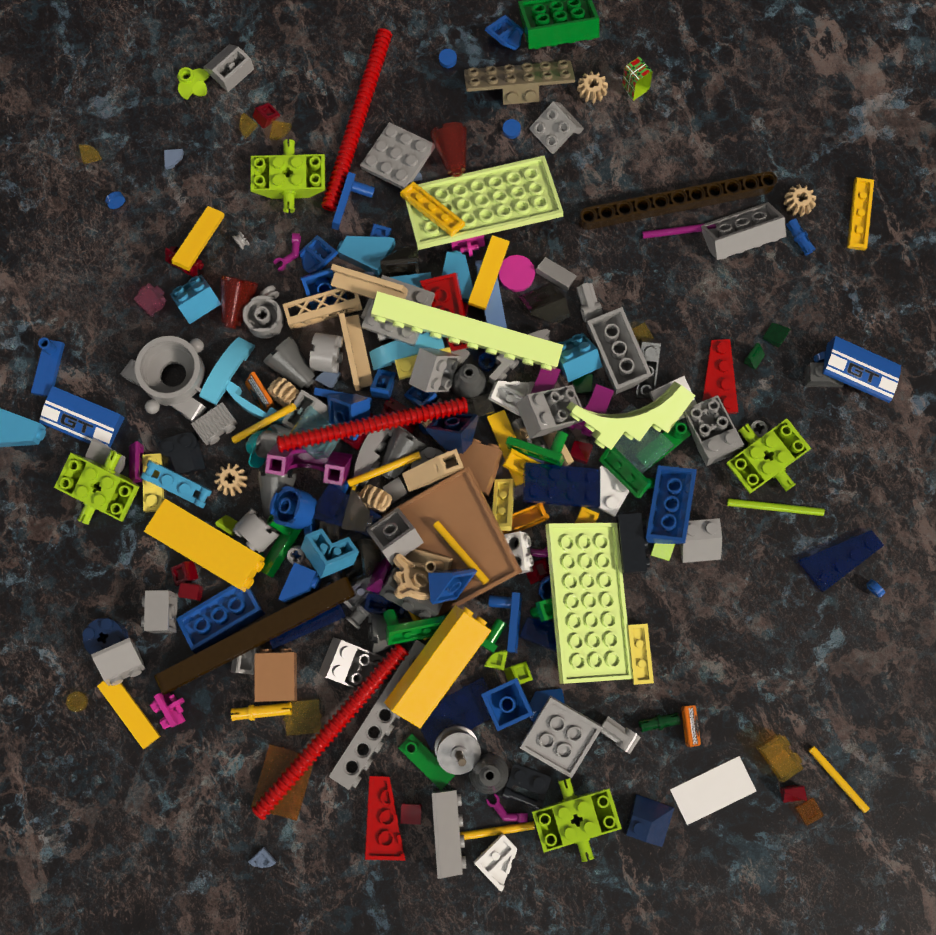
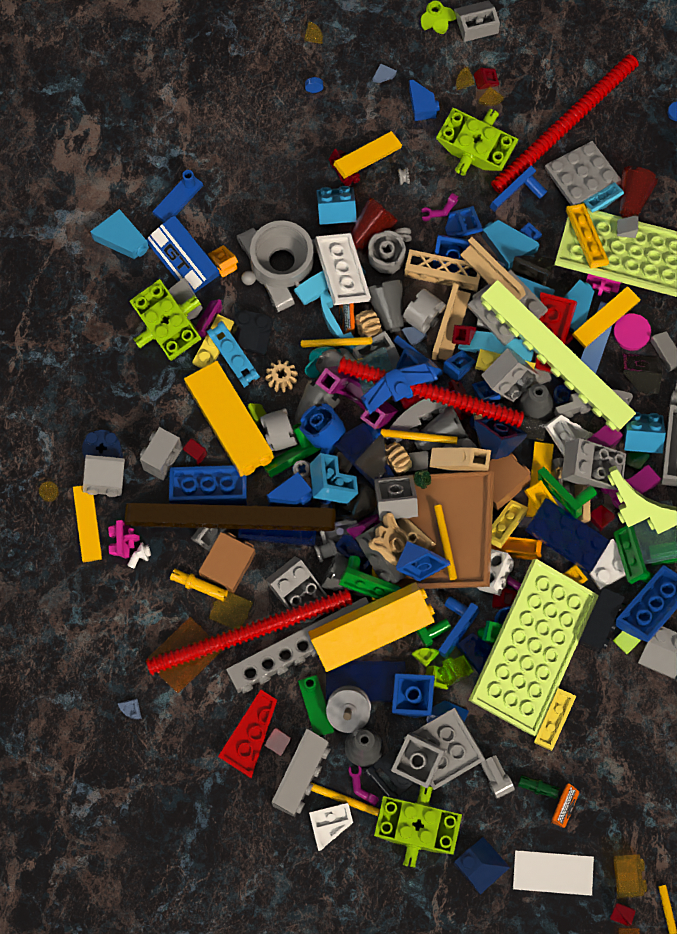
camera: 30 degrees right, 5 degrees down
(120, 403) = (223, 260): none -> light orange slope
(150, 299) = (298, 185): clear pink brick -> none
(184, 572) = (199, 432): dark red slope -> none
(194, 710) = (142, 552): none -> white plate
(214, 424) = (293, 321): light grey brick -> none
(221, 165) = (422, 101): none -> blue slope
(232, 354) = (342, 269): none -> white plate
(340, 435) = (397, 384): none -> blue plate
(372, 355) = (463, 334): none -> dark red slope
(408, 506) = (422, 478): none -> clear green plate
(427, 167) = (603, 198): none -> medium azure slope
(463, 182) = (627, 227): none -> light grey slope
(530, 661) = (454, 670): none -> clear neon green brick
(545, 762) = (418, 760): none -> light grey brick

